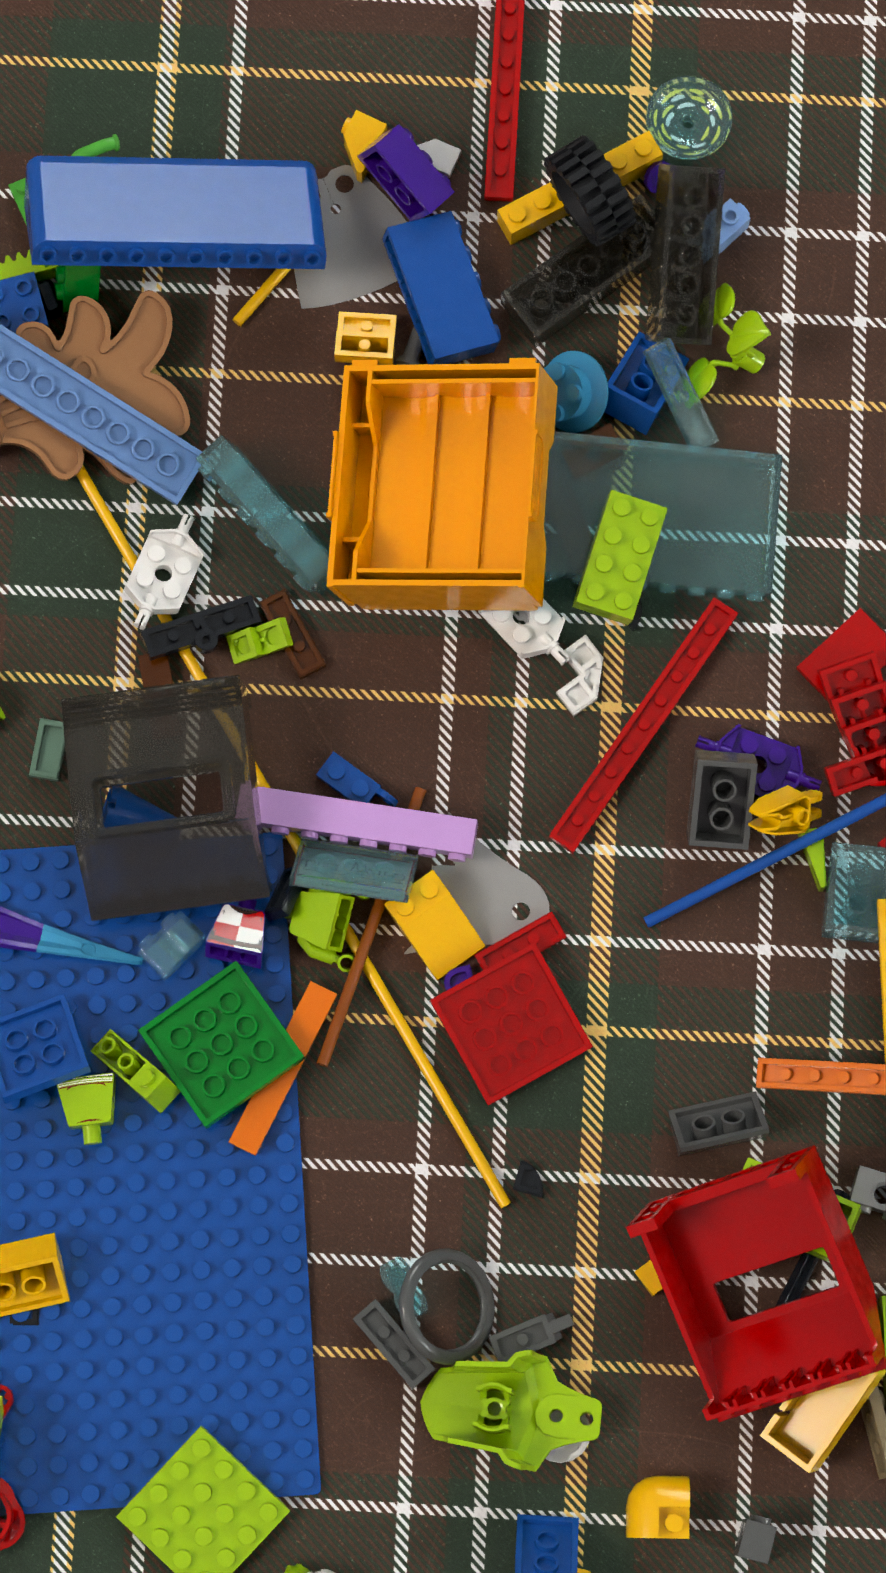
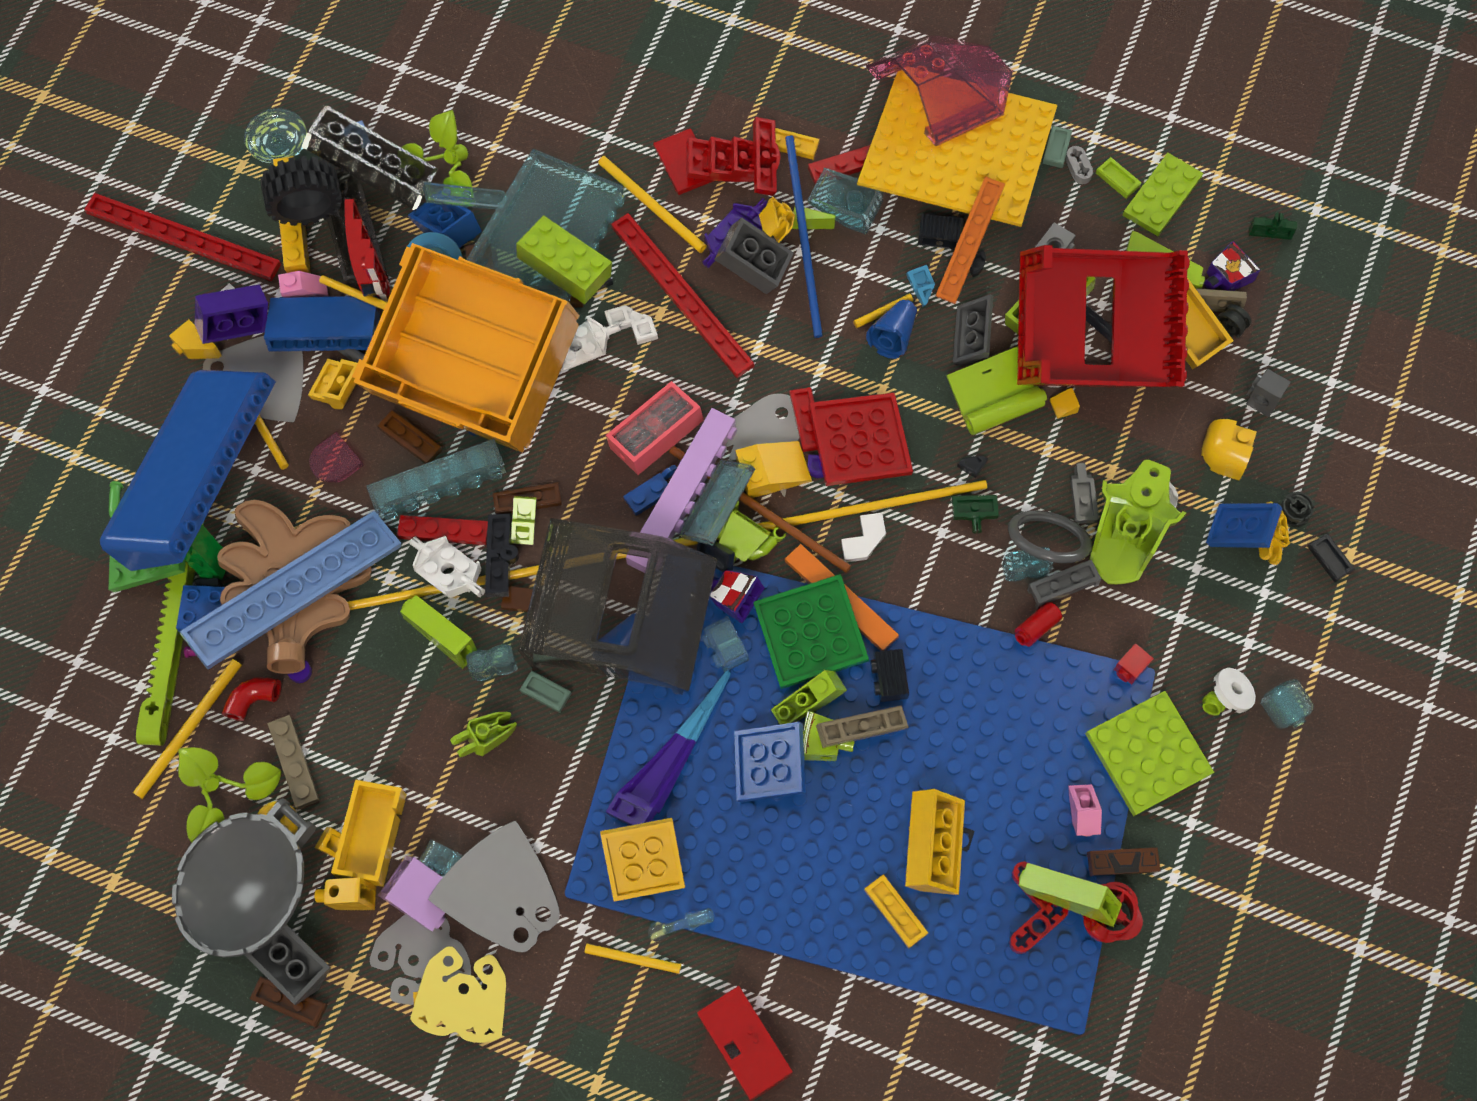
camera: 70 degrees left, 10 degrees down
(53, 1517) = (1123, 861): none -> reddish brown tile
(59, 670) = (485, 664): none -> clear light blue brick
(79, 594) = (438, 630): none -> lime slope
(100, 1450) = (1085, 810): none -> bright pink slope
(114, 1146) = (862, 726): none -> dark tan plate
(196, 1161) = (890, 675): none -> black brick
(216, 546) = (433, 528): none -> red plate
(264, 378) = (333, 460): none -> clear pink tile
(308, 1460) = (1133, 664): none -> red brick
(317, 471) = (409, 437): none -> reddish brown plate
(326, 1325) = (1038, 624): none -> red brick
(388, 1081) = (862, 547): none -> white tile
(436, 757) = (654, 427): none -> brick
(463, 1201) = (975, 509): none -> dark green plate
(486, 243) = (301, 285): none -> bright pink slope
(491, 312) = (352, 292): none -> yellow bar
(532, 303) = (363, 256): none -> red slope
(628, 1173) = (993, 396): none -> lime door
(686, 1018) = (893, 330): none -> blue cone
(713, 995) = (879, 312): none -> yellow bar
(767, 639) = (652, 204): none -> yellow piece
(772, 1034) = (921, 283): none -> dark azure slope
(830, 1100) = (978, 263): none -> black tile
(854, 1469) = (1234, 320): none -> pearl dark grey wheel
(857, 1033) = (940, 231): none -> black brick

